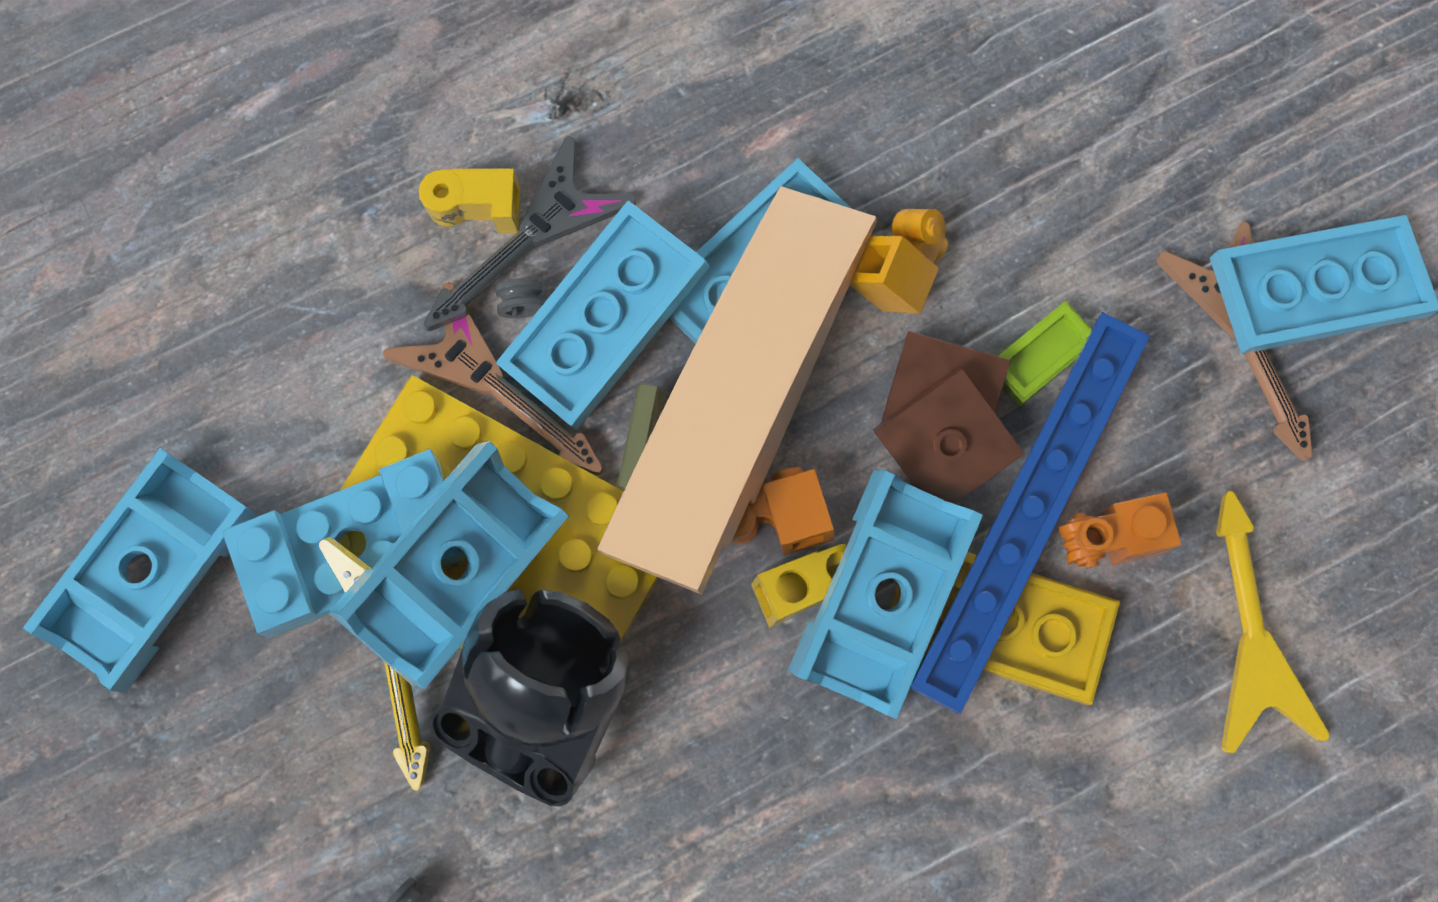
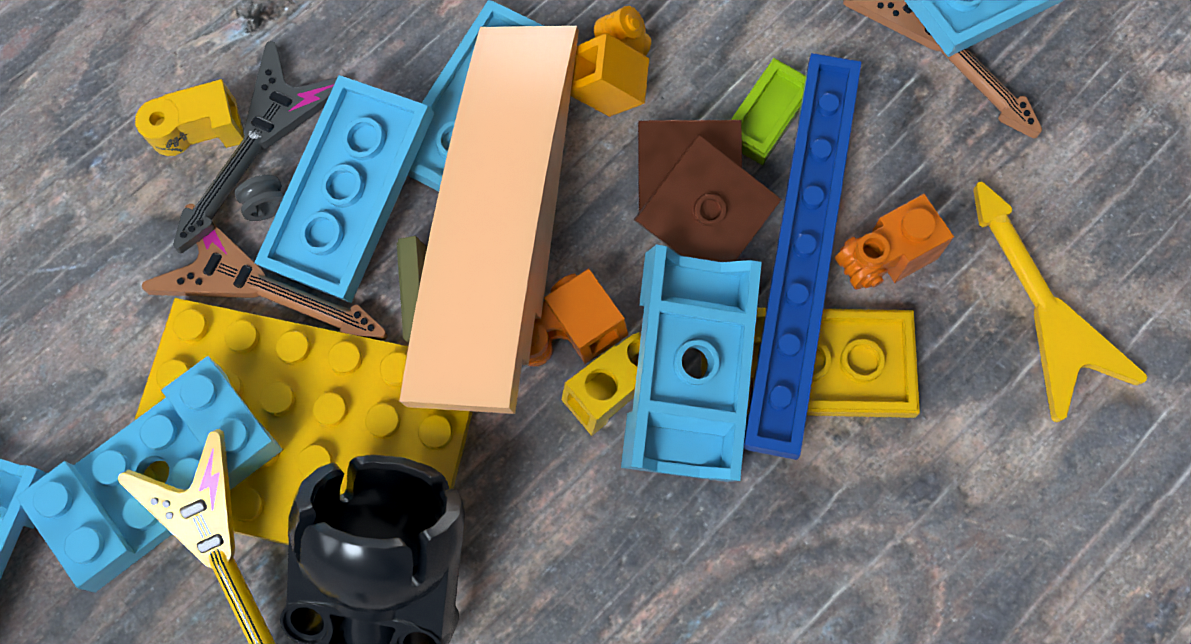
camera: 15 degrees left, 5 degrees down
(407, 603) = (221, 508): medium azure piece -> none

